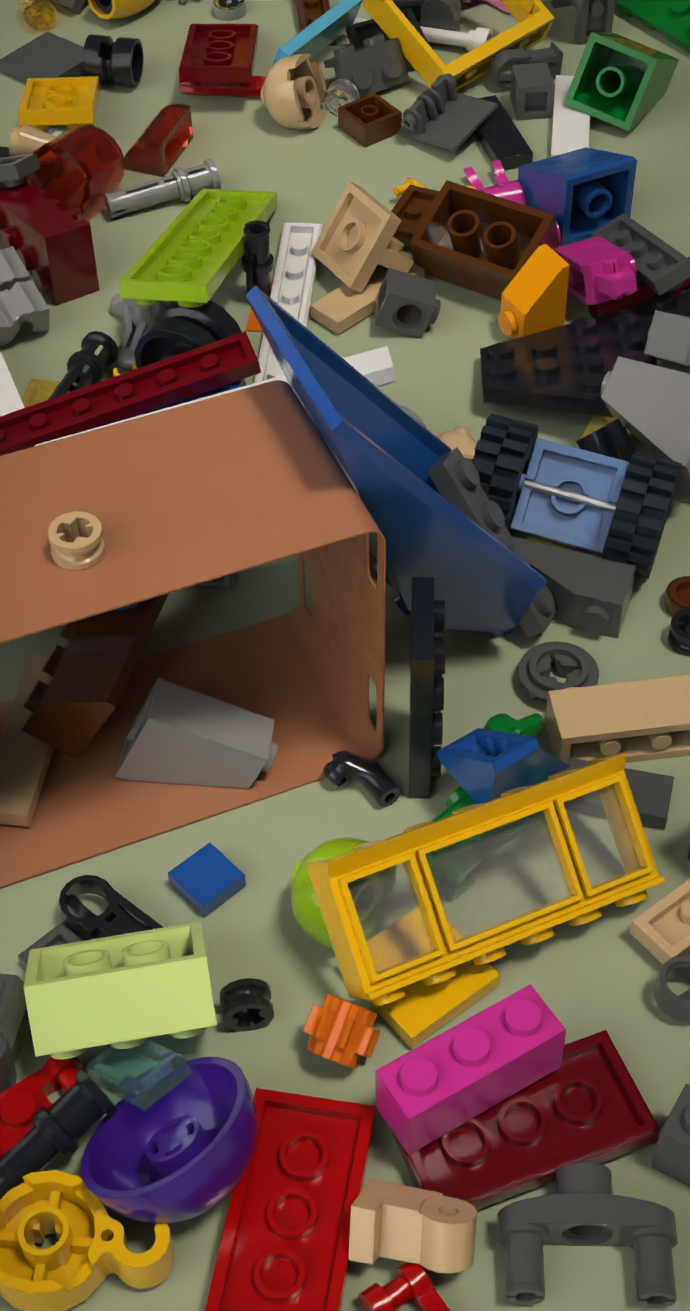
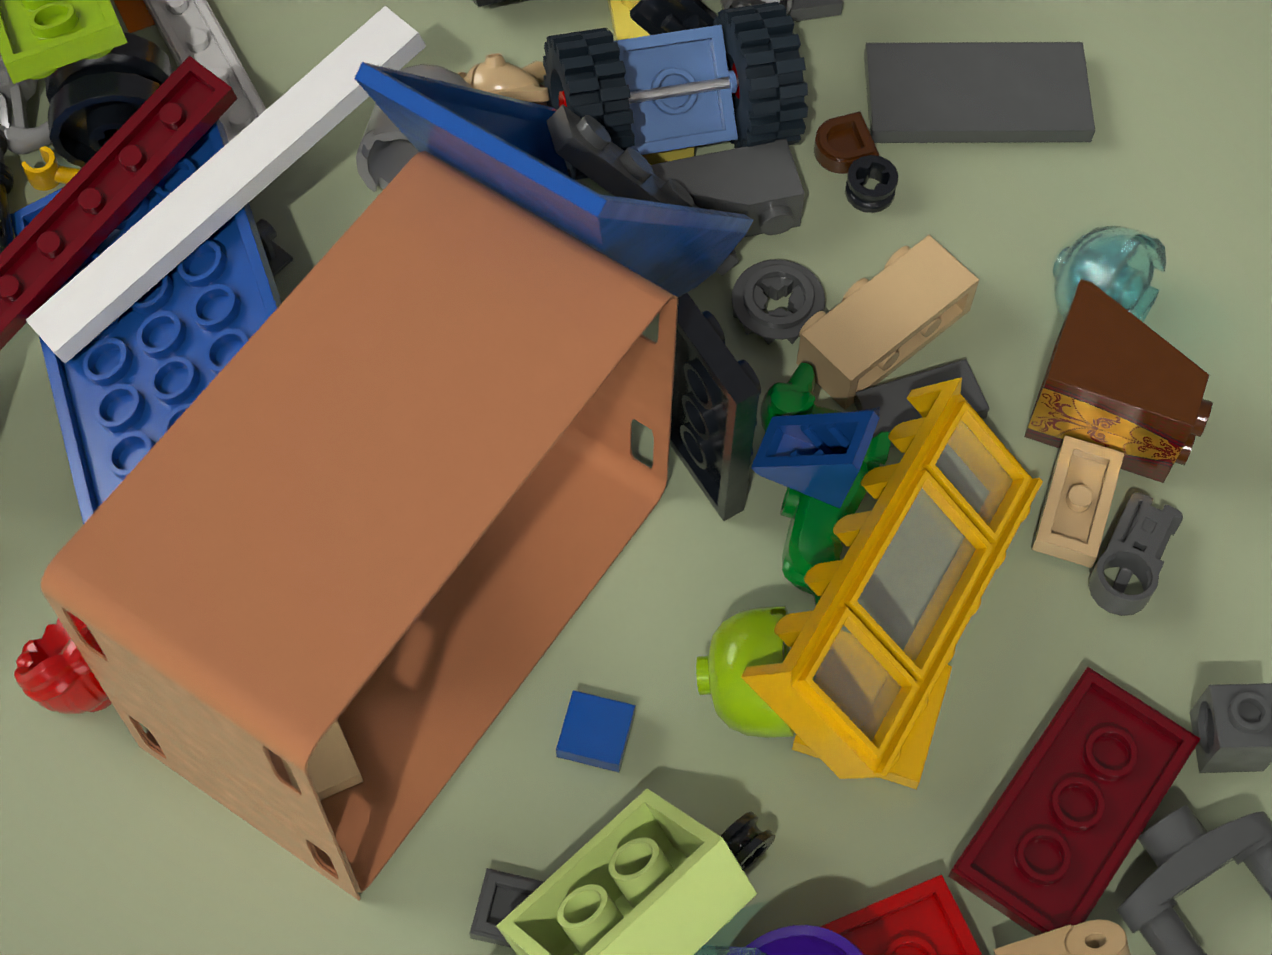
camera: 35 degrees left, 15 degrees up
(76, 540) = (349, 482): tan bush -> none
(117, 919) = (550, 839): black piece -> none
(195, 741) = (495, 586): light grey slope -> none
(341, 1031) = (856, 818): orange gear -> none
(366, 771) = (667, 518): black arm -> none
(469, 1068) = (1017, 789): dark pink brick -> none

